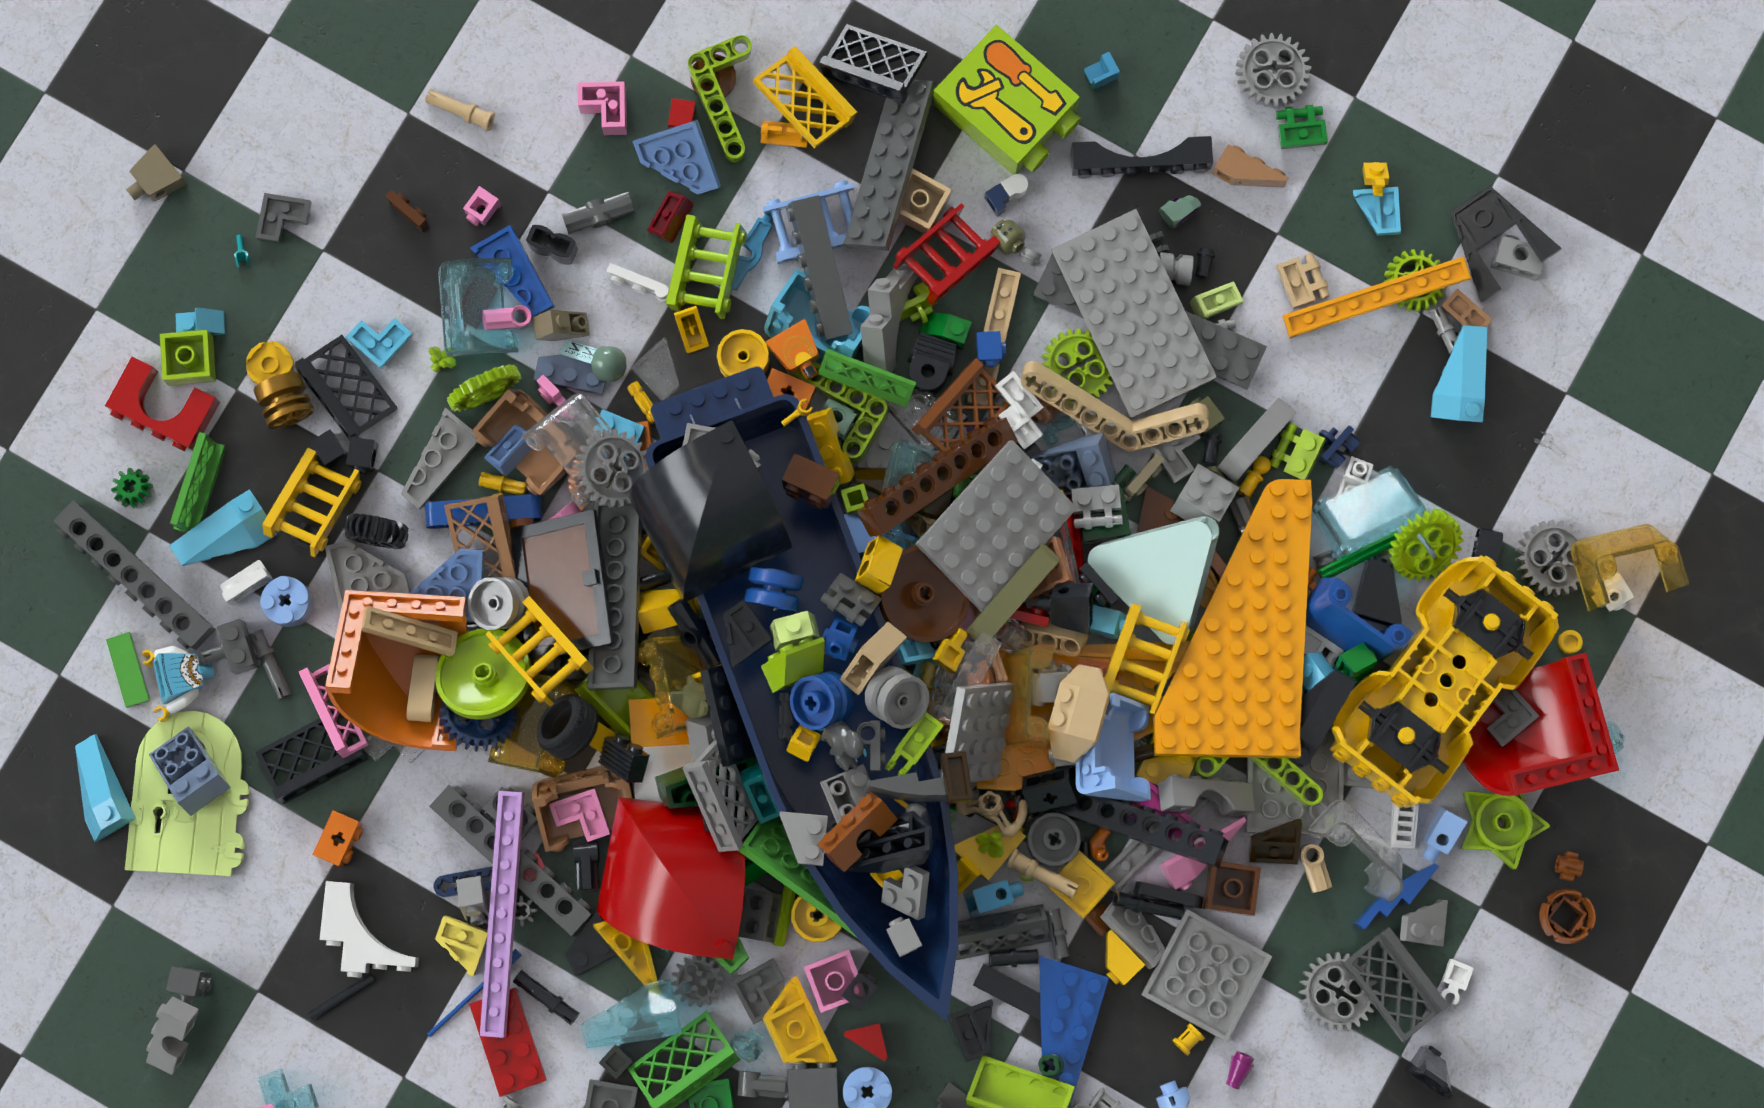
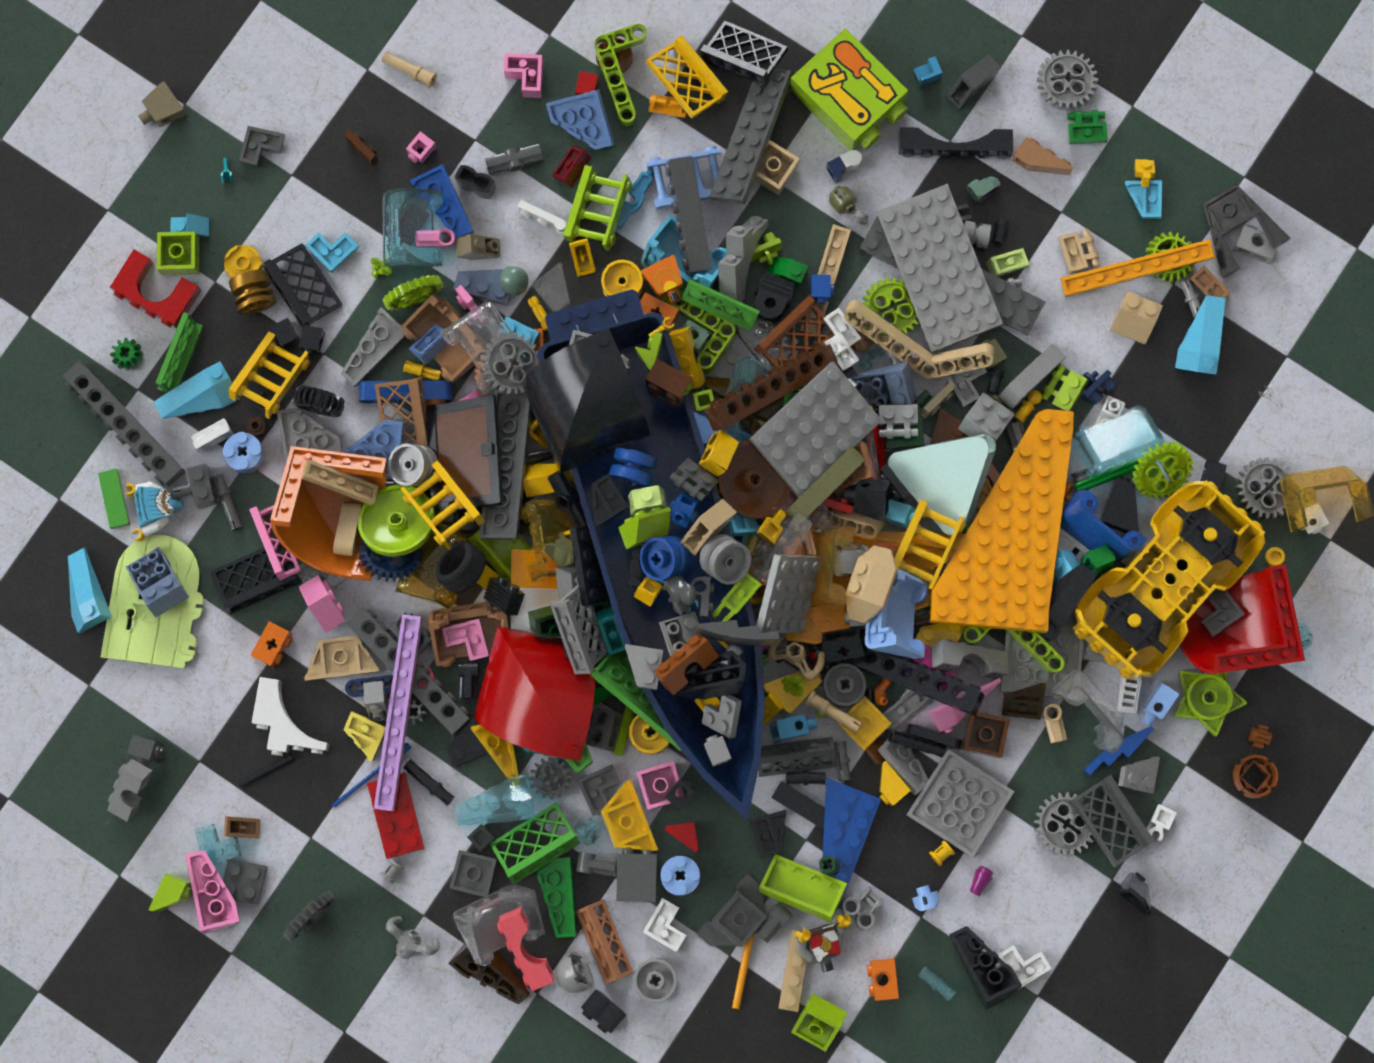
camera: 10 degrees right, 0 degrees up
(305, 572) = (260, 430): none -> reddish brown plate
(315, 1071) = (241, 827): none -> medium nougat slope
(397, 783) = (321, 603): none -> bright pink brick
(425, 850) = (340, 658): none -> tan wing
(577, 351) = (489, 268): clear light blue sticker -> none
(785, 450) = (649, 357): none -> lime slope
(953, 275) = (795, 227): red fence -> none
(956, 777) = (768, 626): dark brown tile -> none
(1158, 79) = (973, 81): none -> dark grey slope
(1379, 358) = (1136, 317): none -> tan slope

